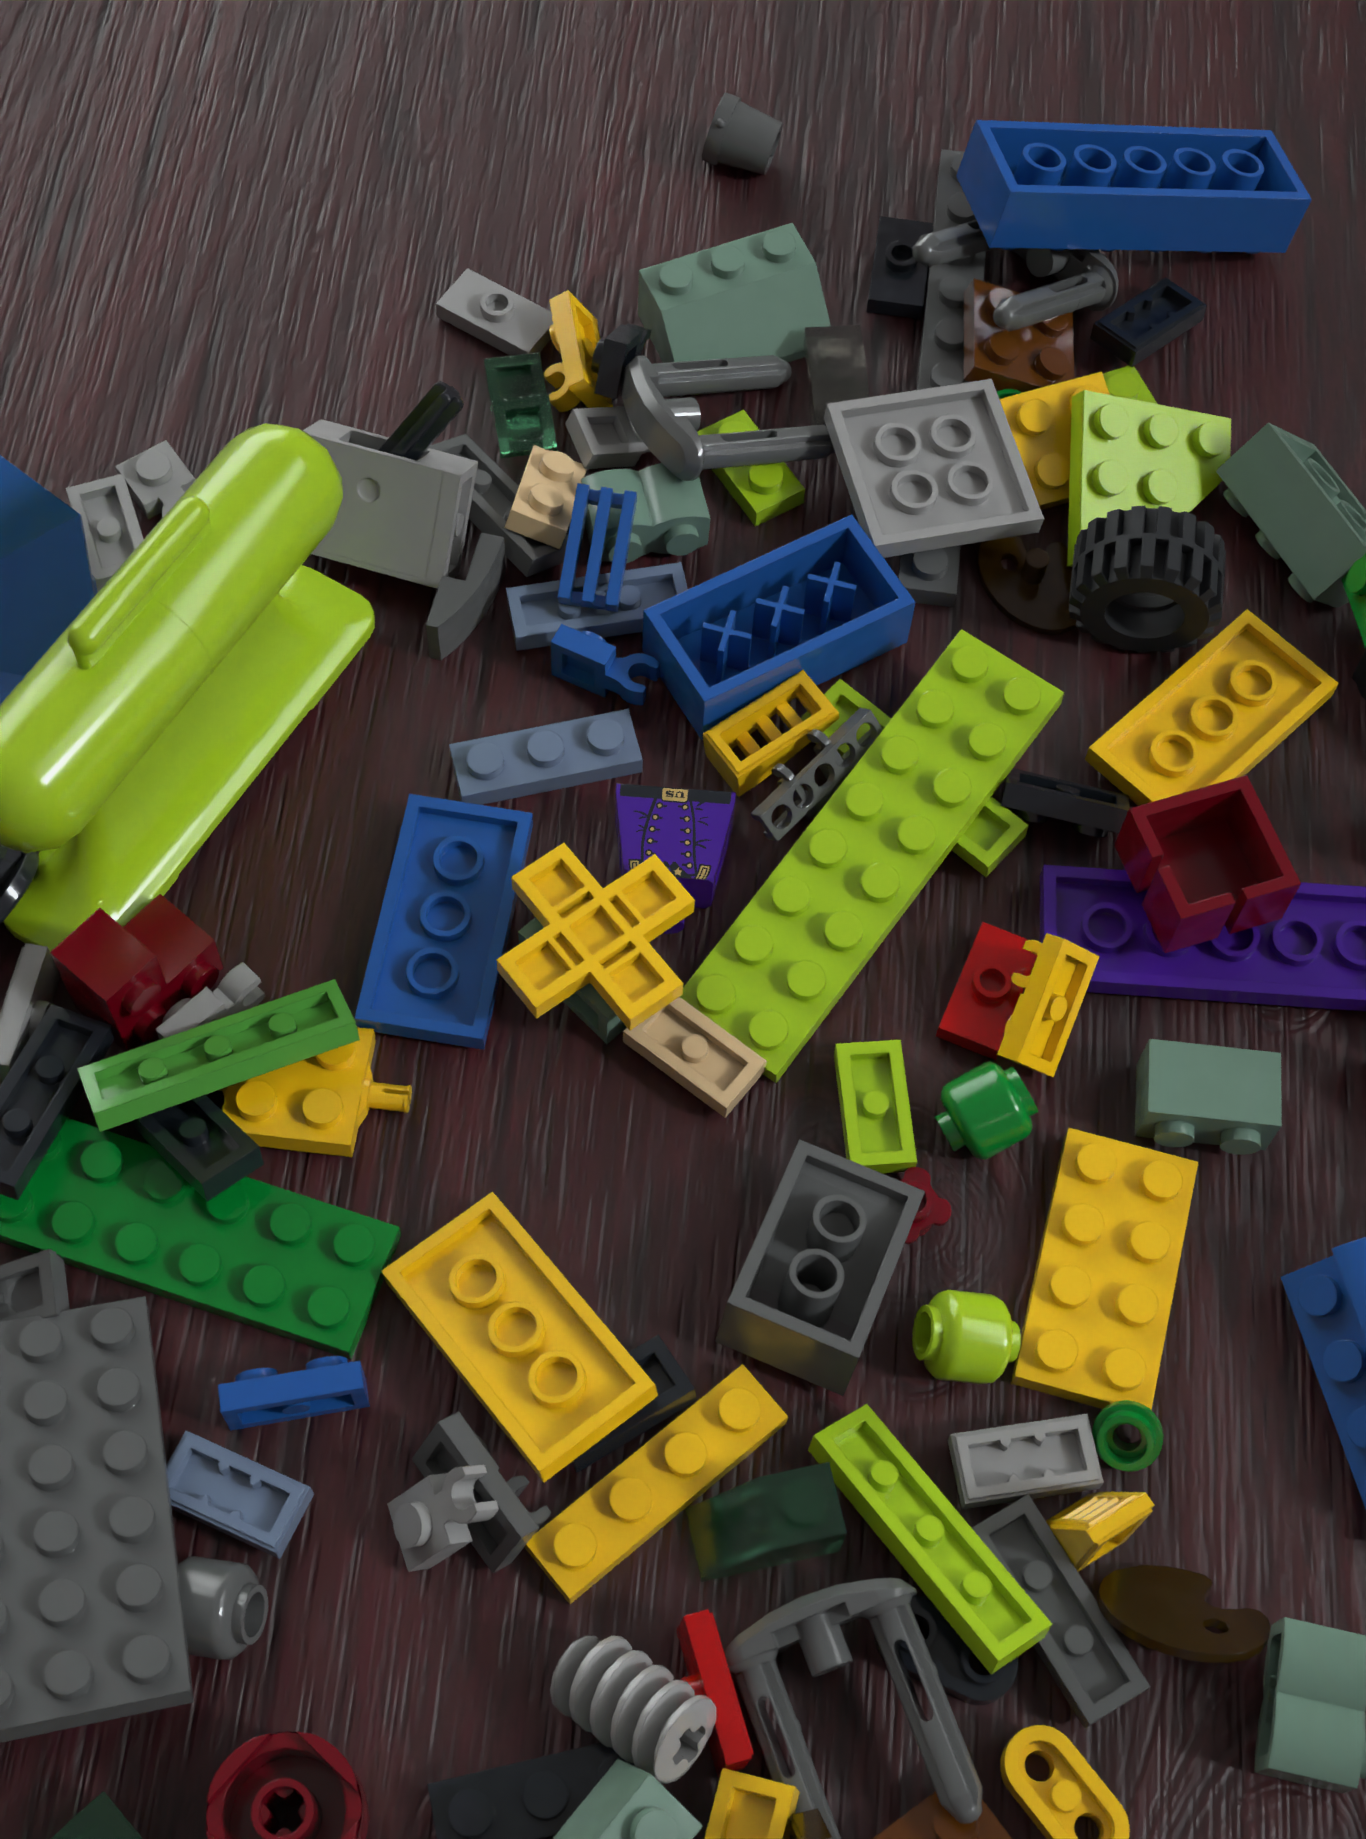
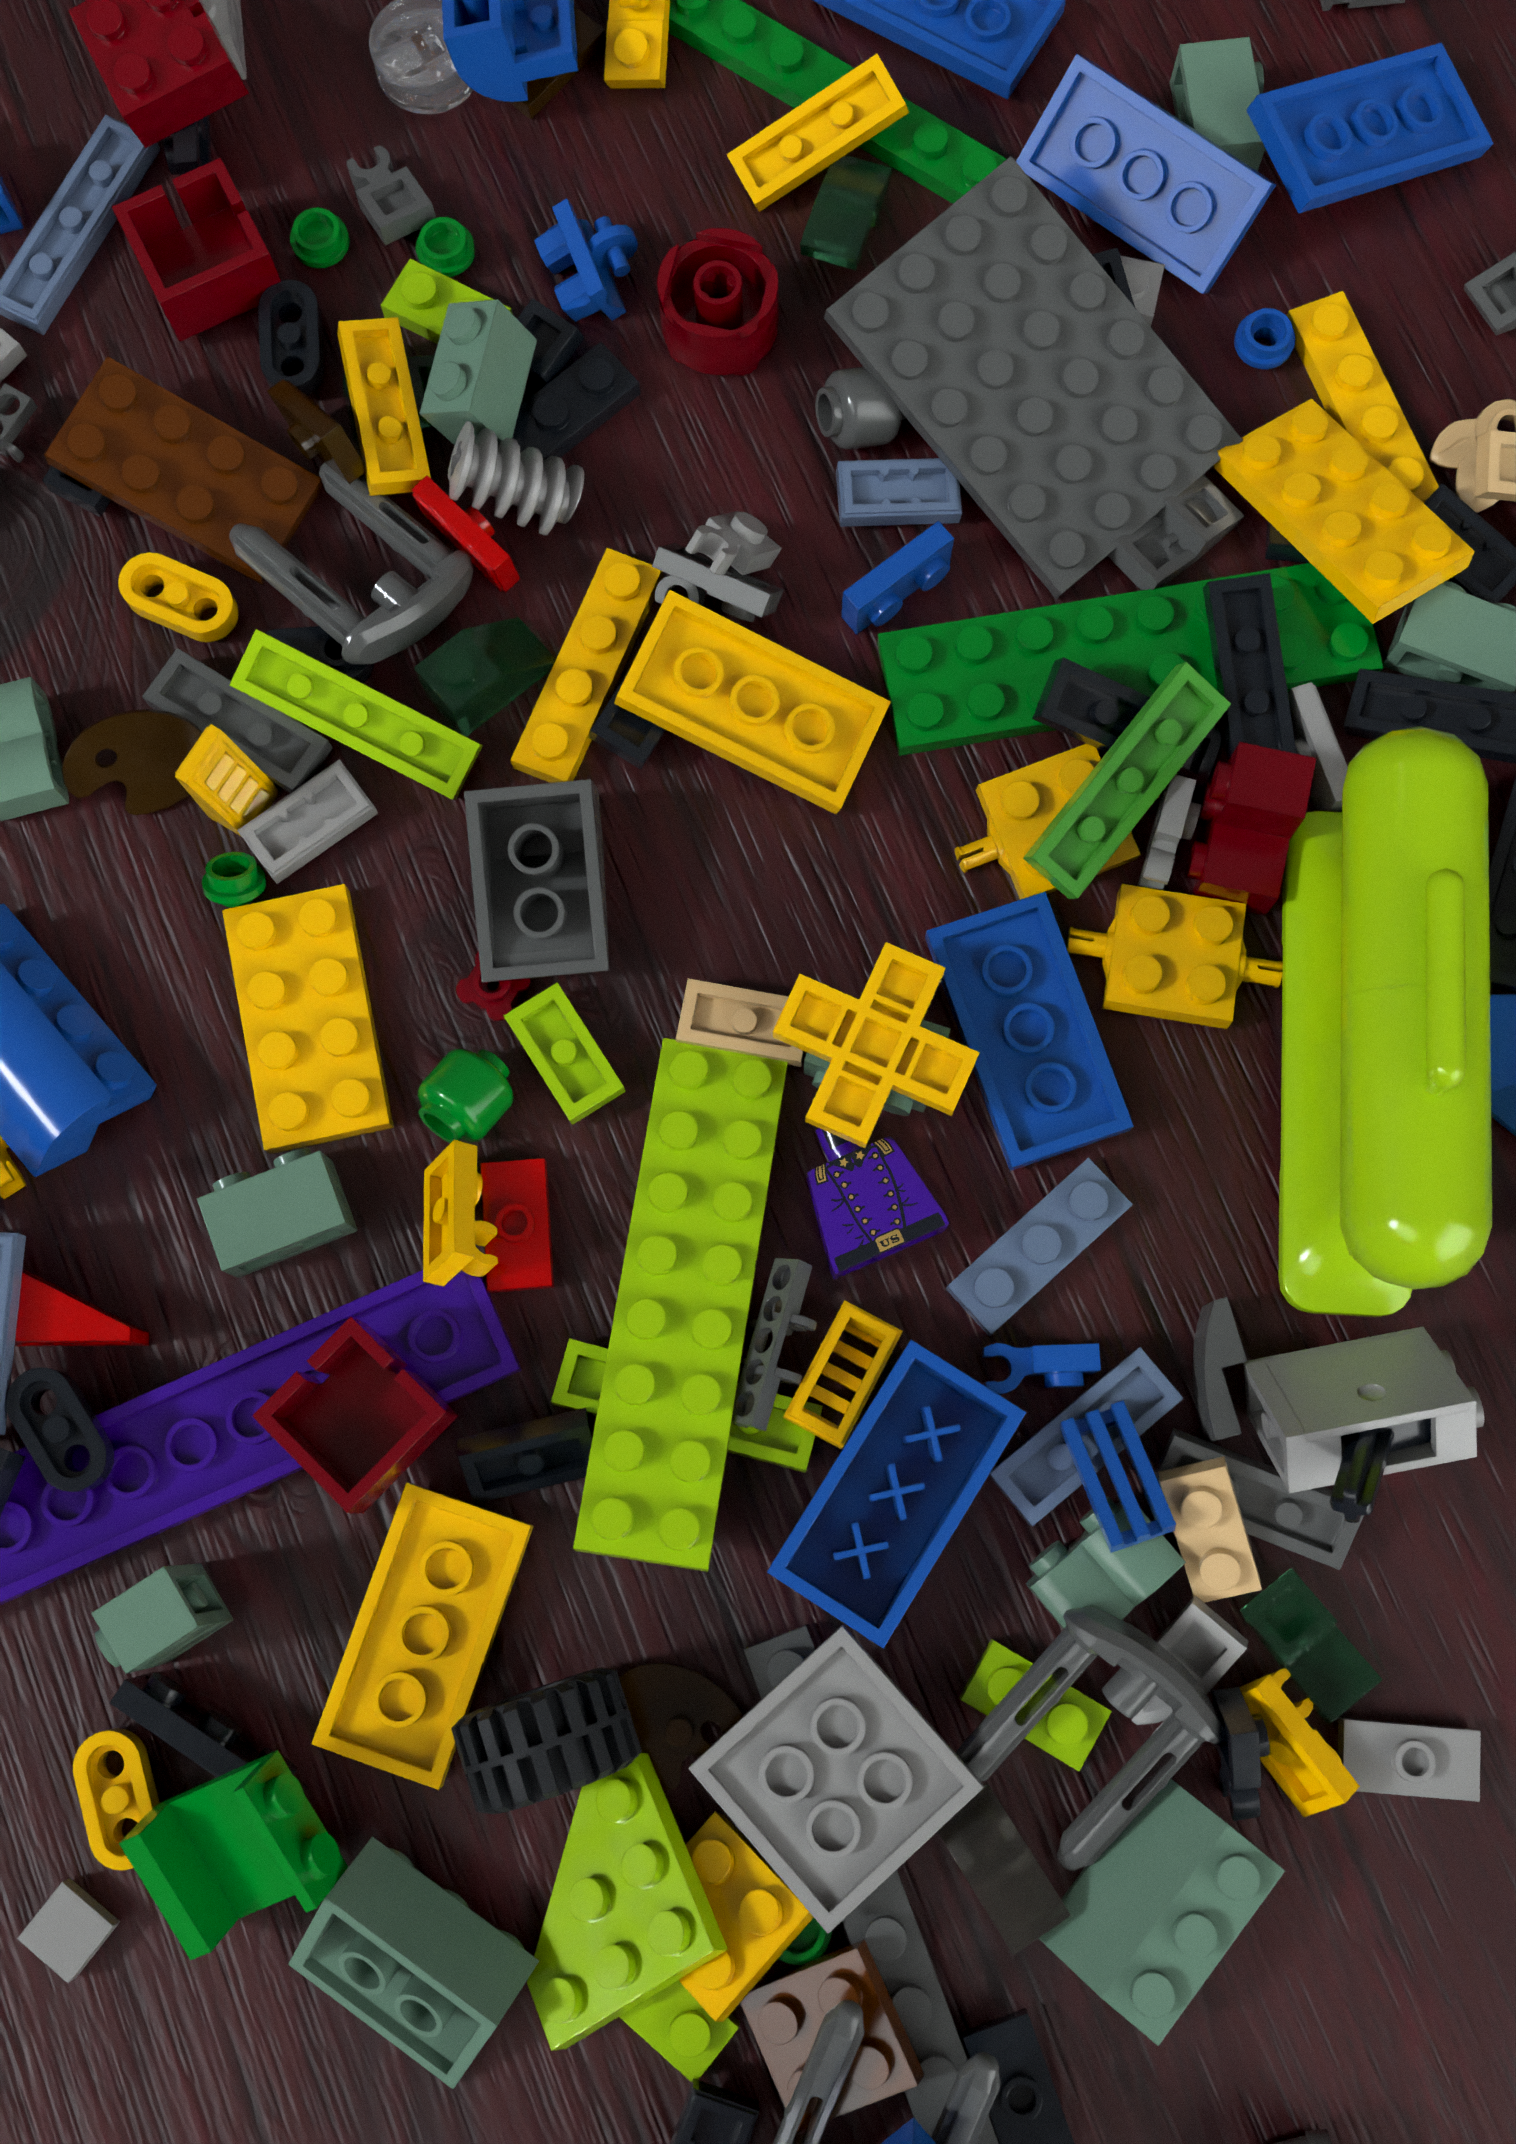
camera: 160 degrees right, 15 degrees up
(279, 917) = (1174, 956): none -> yellow plate
(965, 1337) = (396, 889): lime head -> none

